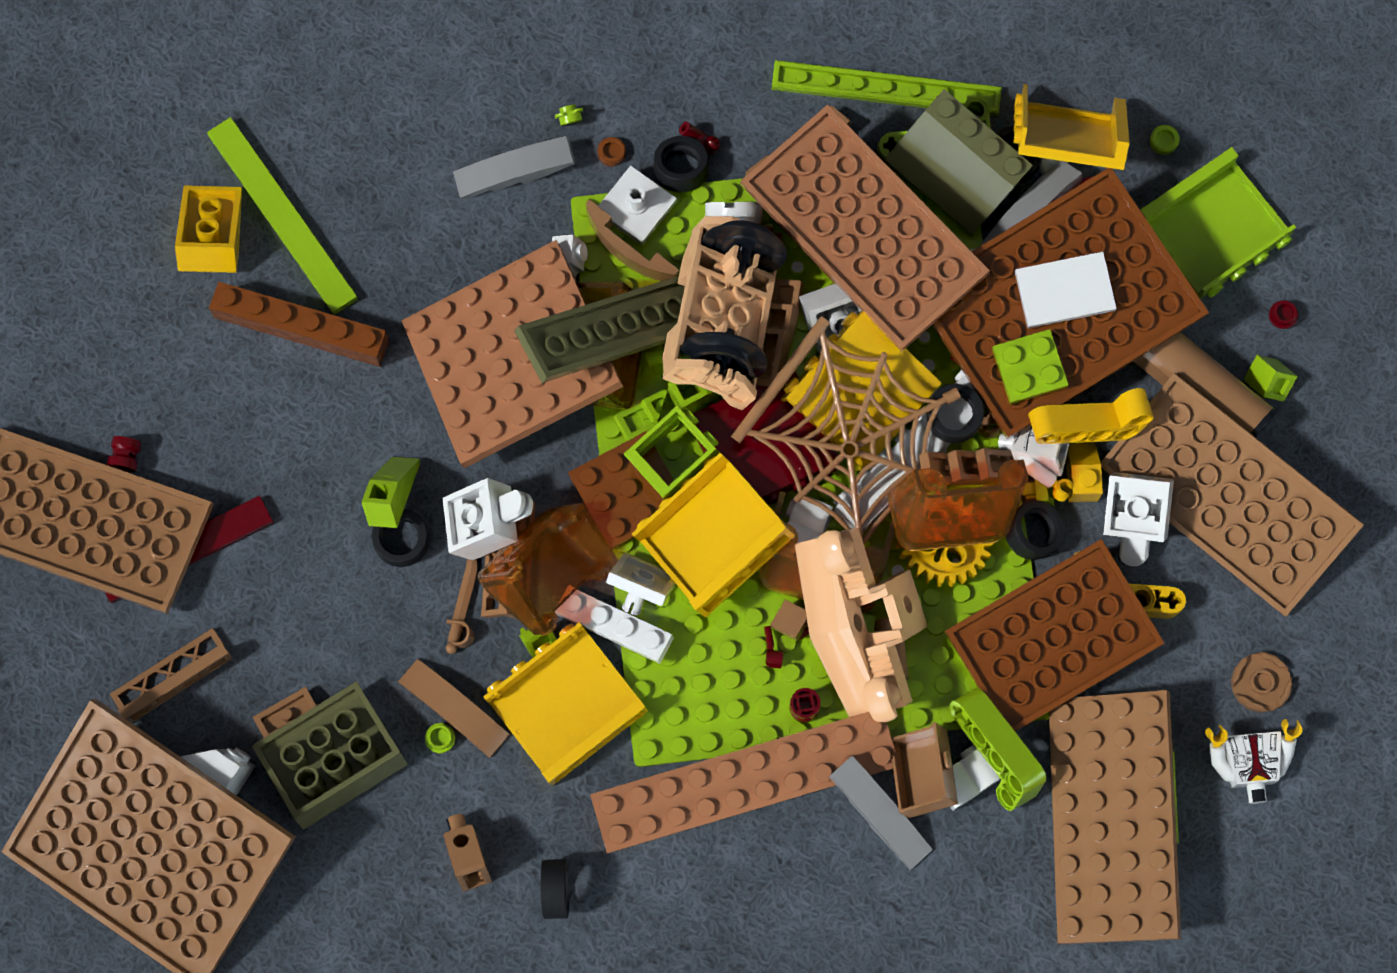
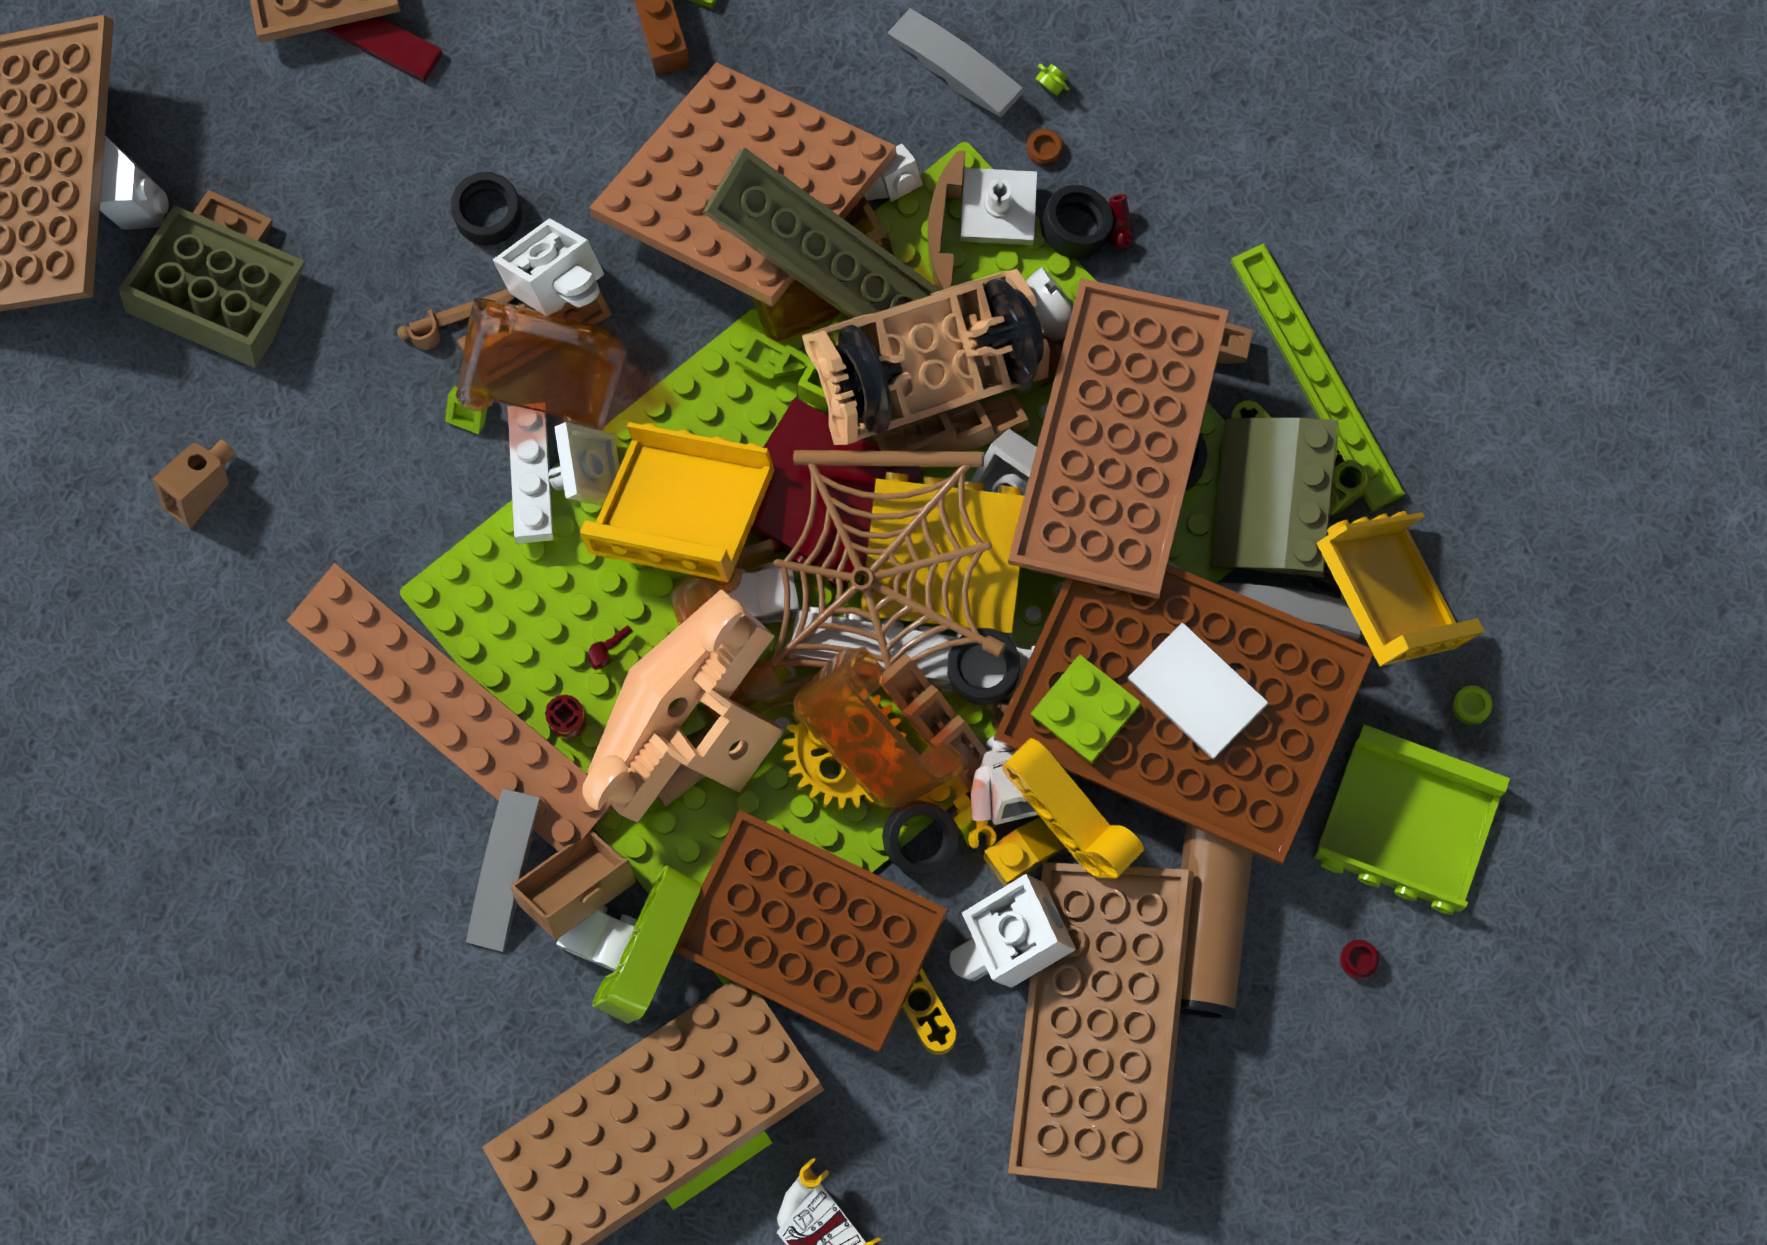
camera: 60 degrees right, 0 degrees up
(175, 682) = (200, 96): medium nougat fence -> none
(389, 491) = (519, 160): lime slope -> none
(440, 738) = (303, 382): lime plate -> none
(454, 707) = (341, 375): medium nougat slope -> none
(554, 889) = (211, 589): black tyre -> none
(565, 703) = (418, 478): yellow panel -> none
(617, 492) = (683, 387): dark orange plate -> none
(654, 435) = (708, 392): lime window -> none
(790, 620) = (645, 639): medium nougat tile -> none
(1252, 689) = (919, 1210): medium nougat tile -> none
(1270, 378) = (1273, 988): lime panel -> none

